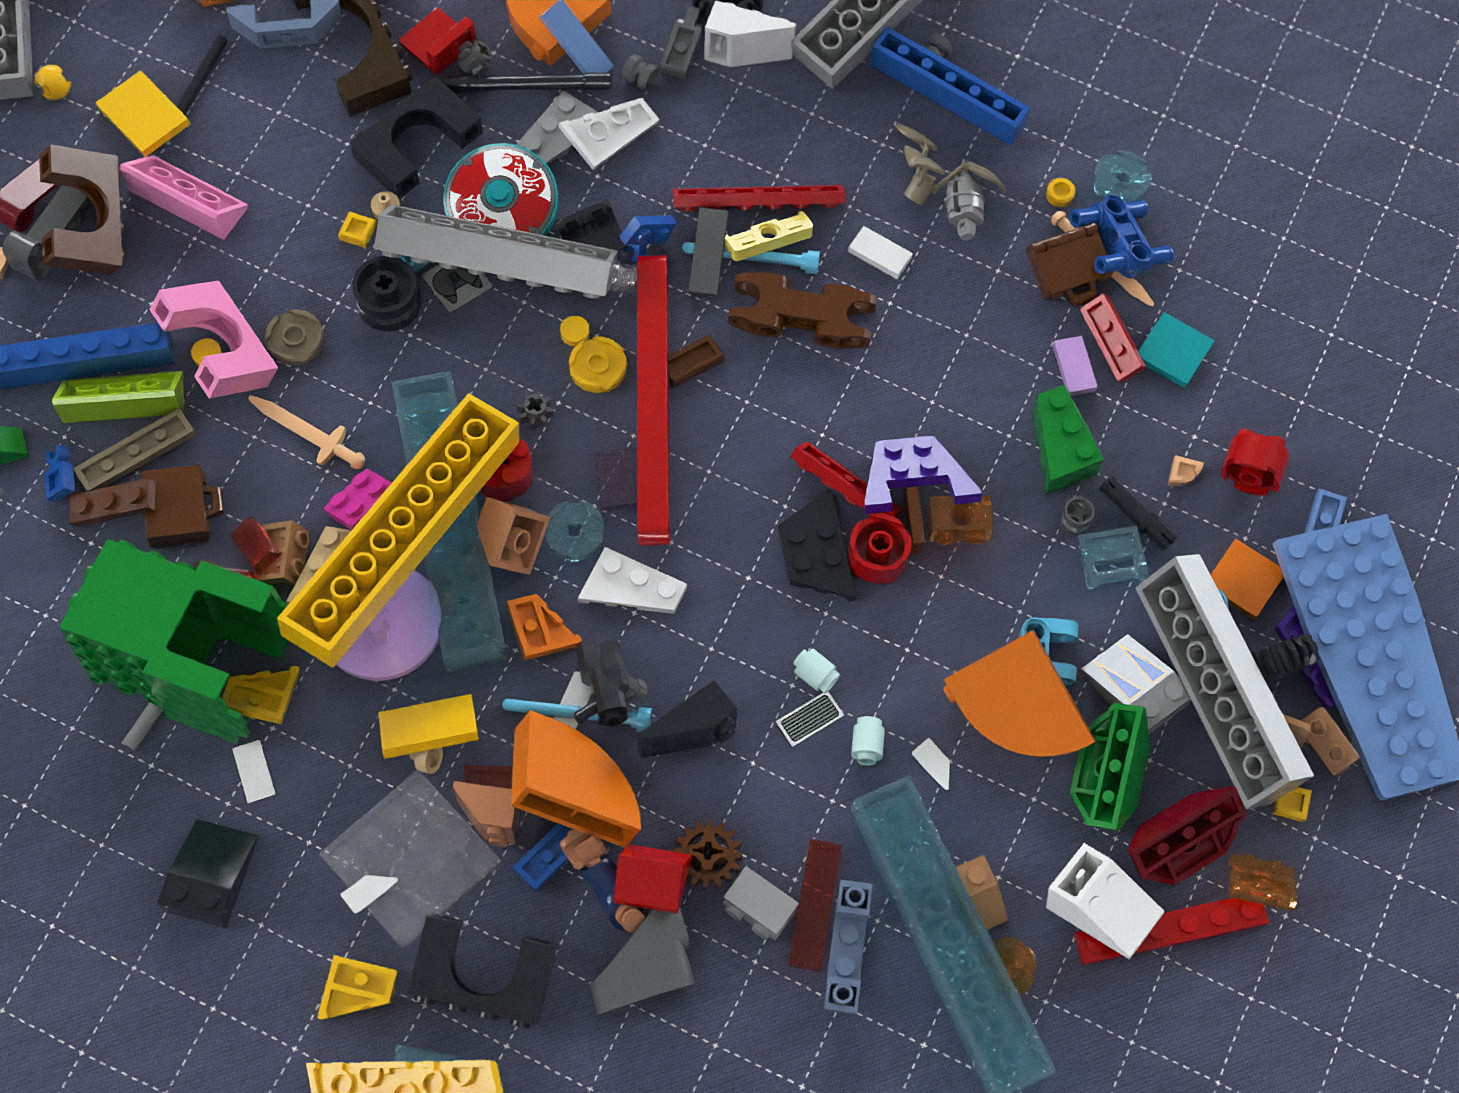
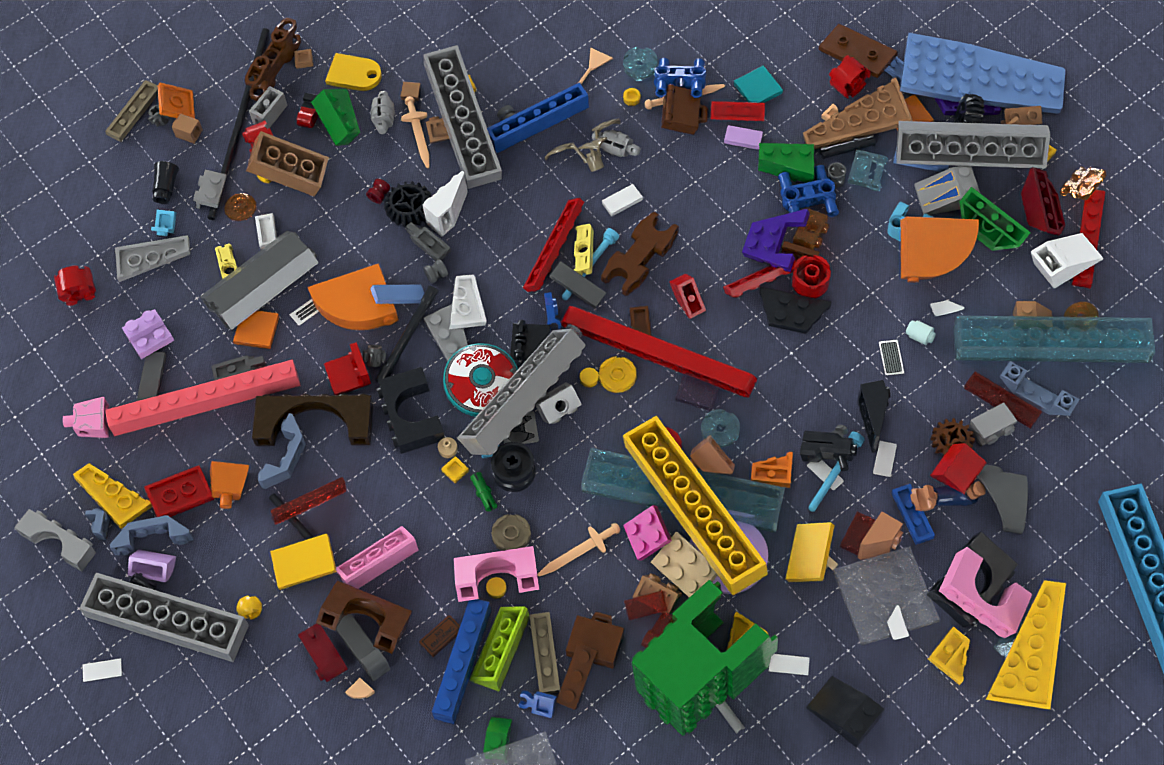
camera: 55 degrees left, 5 degrees down
(105, 315) = (440, 636): none -> reddish brown tile
(226, 78) = (308, 501): none -> clear red tile
(338, 277) = (483, 491): none -> green pin
(444, 947) = (961, 589): none -> bright pink arch
(523, 304) = (547, 404): none -> light grey brick
(535, 410) = (632, 412): dark grey gear -> none
(571, 781) = (882, 485): orange brick -> none
(632, 584) = (767, 413): white wing -> none
(645, 772) = (884, 458): none -> white sticker
(765, 399) = (687, 295): none -> red slope
(816, 670) = (867, 339): light aqua brick -> none
(1024, 491) = (809, 193): none -> blue piece
(1099, 122) = (596, 60): none -> light nougat piece
(1202, 516) = (862, 118): none -> medium nougat wing
(1318, 460) = (870, 53): none -> reddish brown plate

